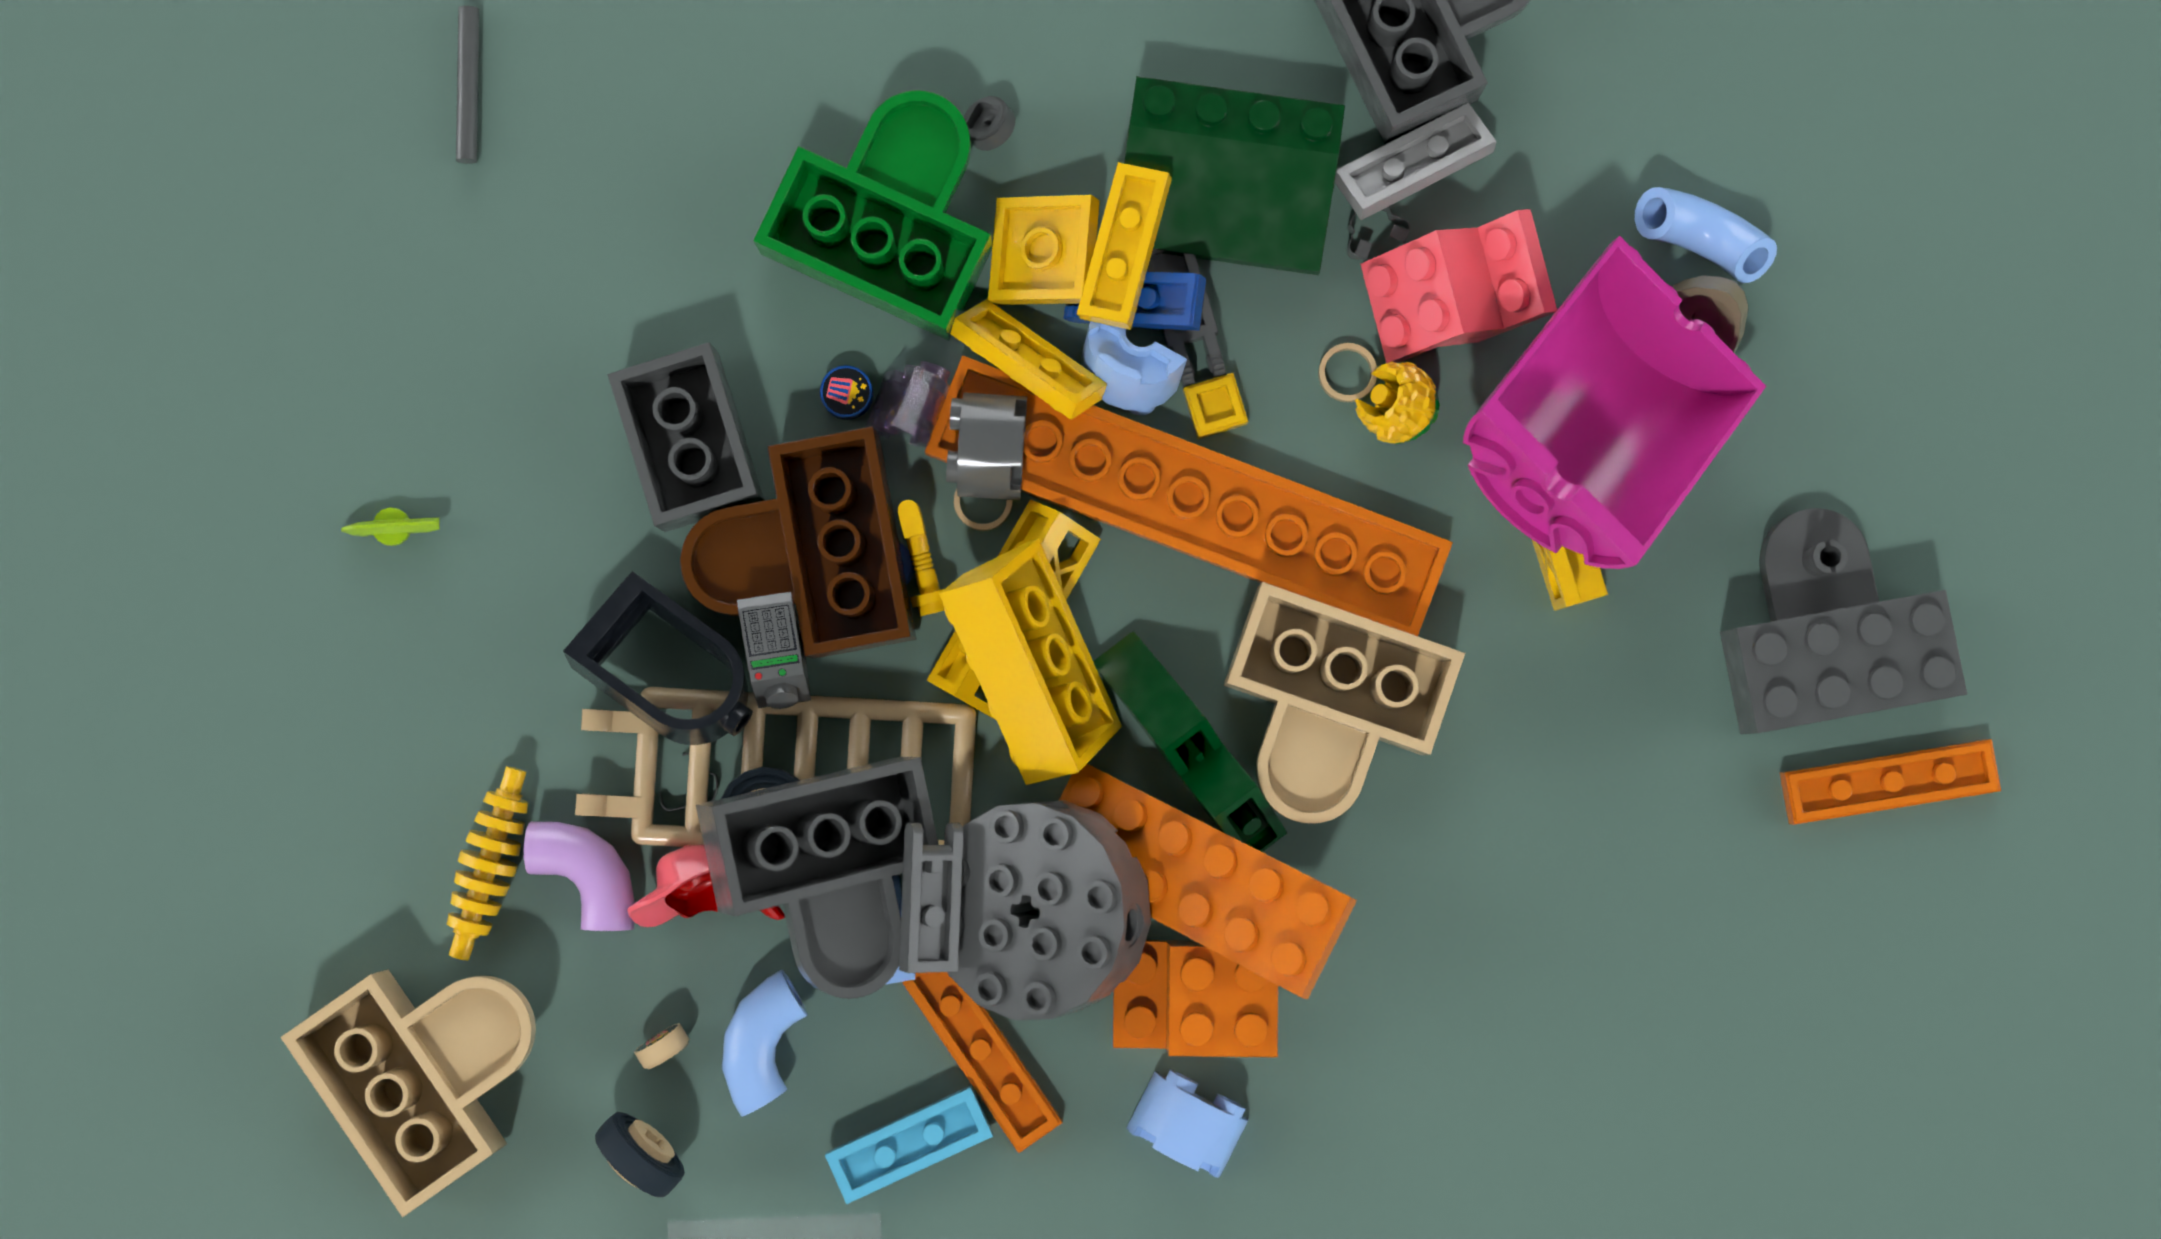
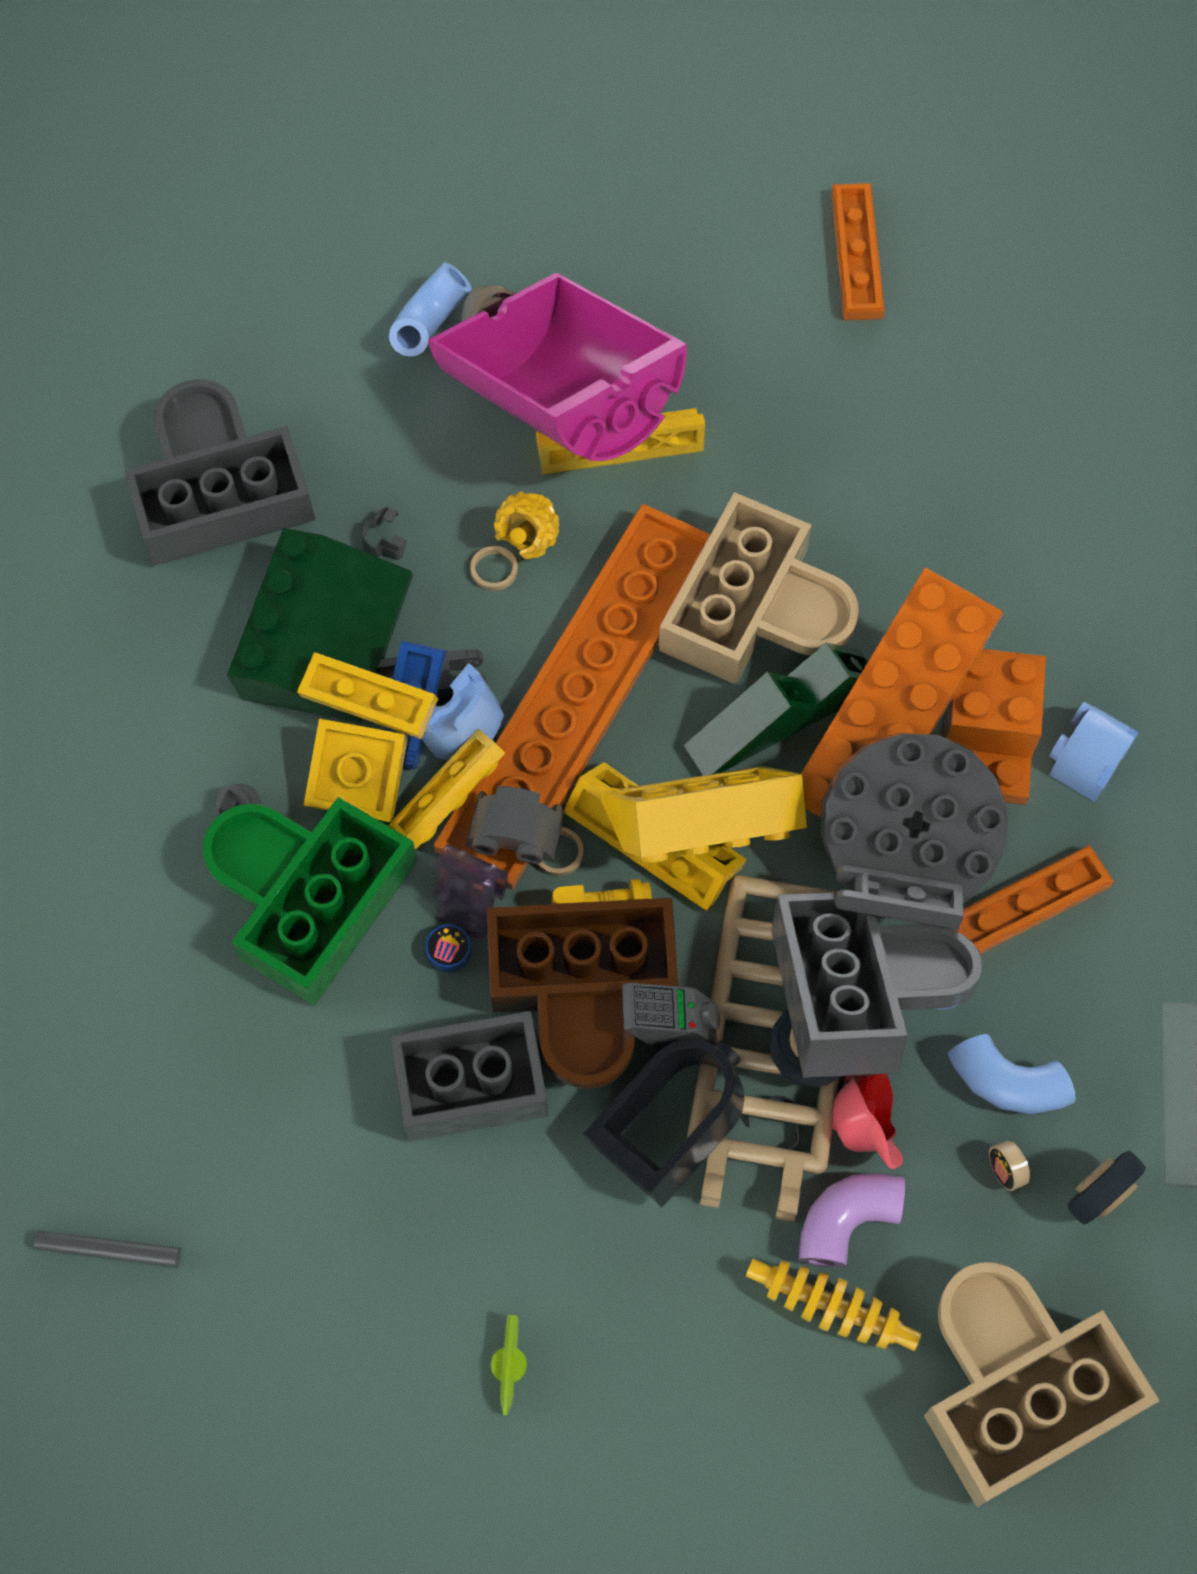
camera: 80 degrees left, 20 degrees down
(909, 1144) = (1104, 968): medium azure plate -> none
(1215, 406) = (506, 665): yellow tile -> none
(1414, 161) = (335, 493): light grey plate -> none
(1458, 286) = (442, 472): coral bracket -> none
(1830, 638) = (753, 272): dark grey brick -> none

